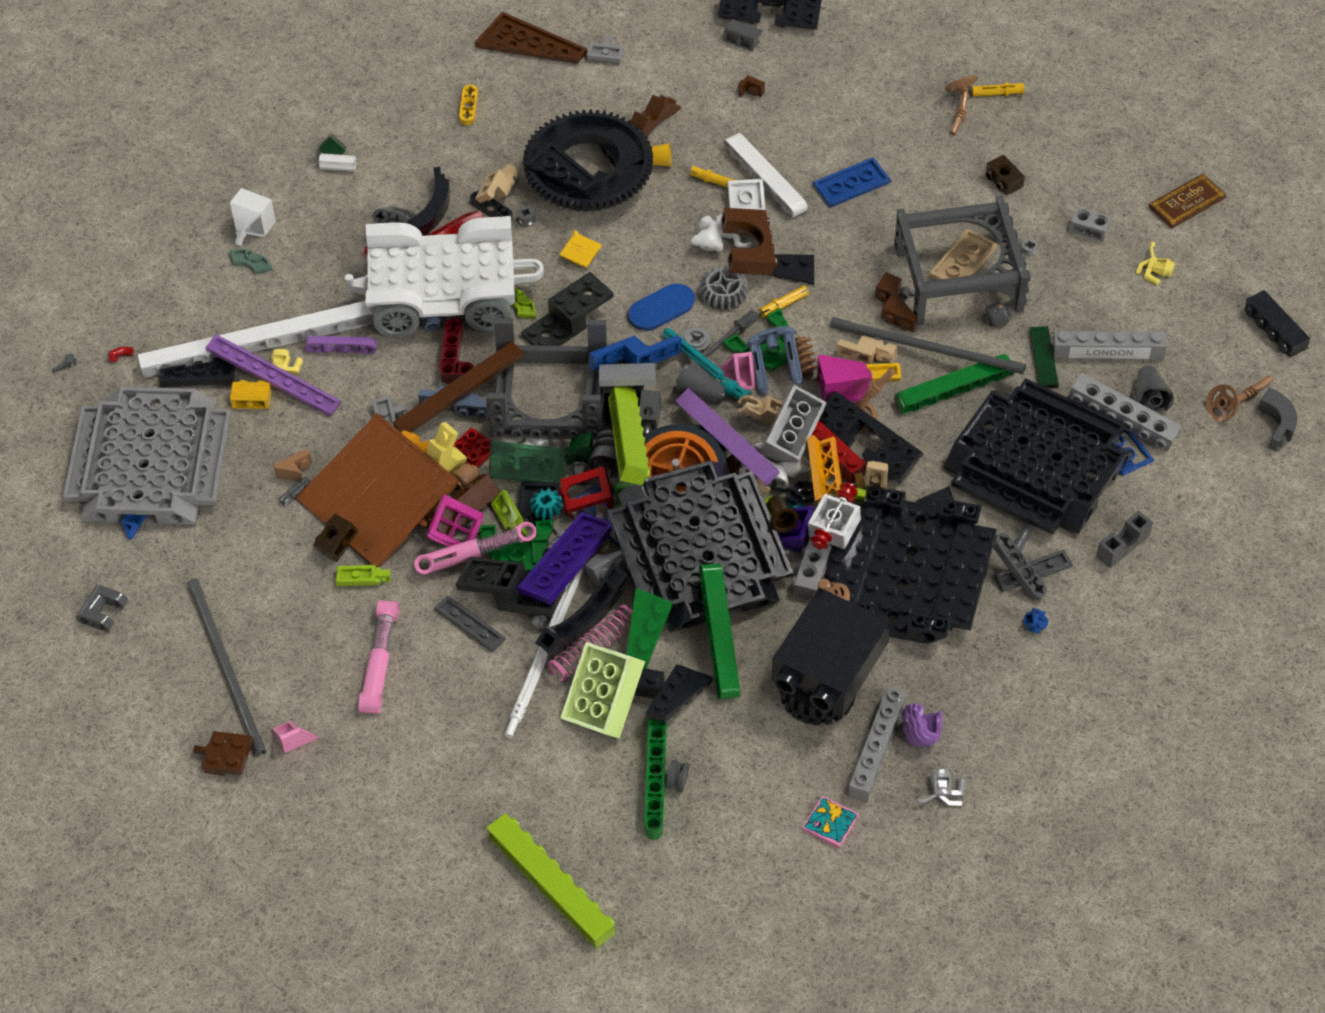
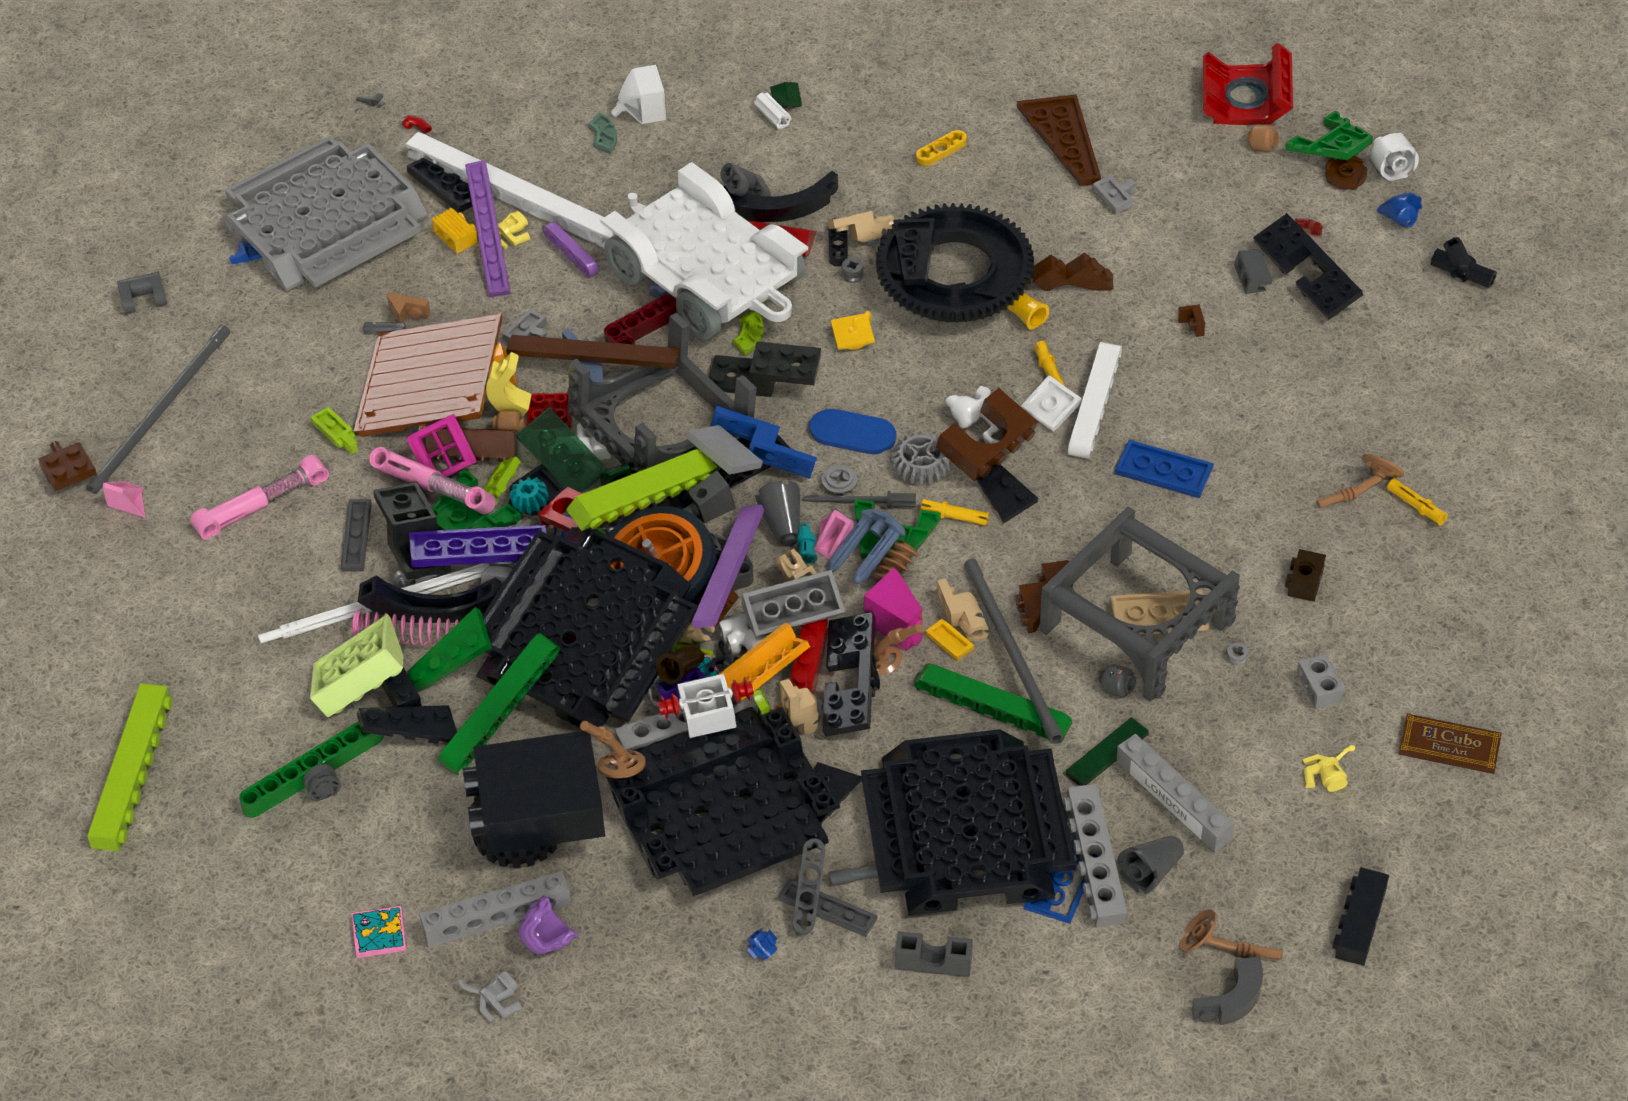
camera: 50 degrees right, 5 degrees down
(335, 547) = (354, 383): dark brown brick -> none
(694, 354) = (814, 485): teal axle -> none

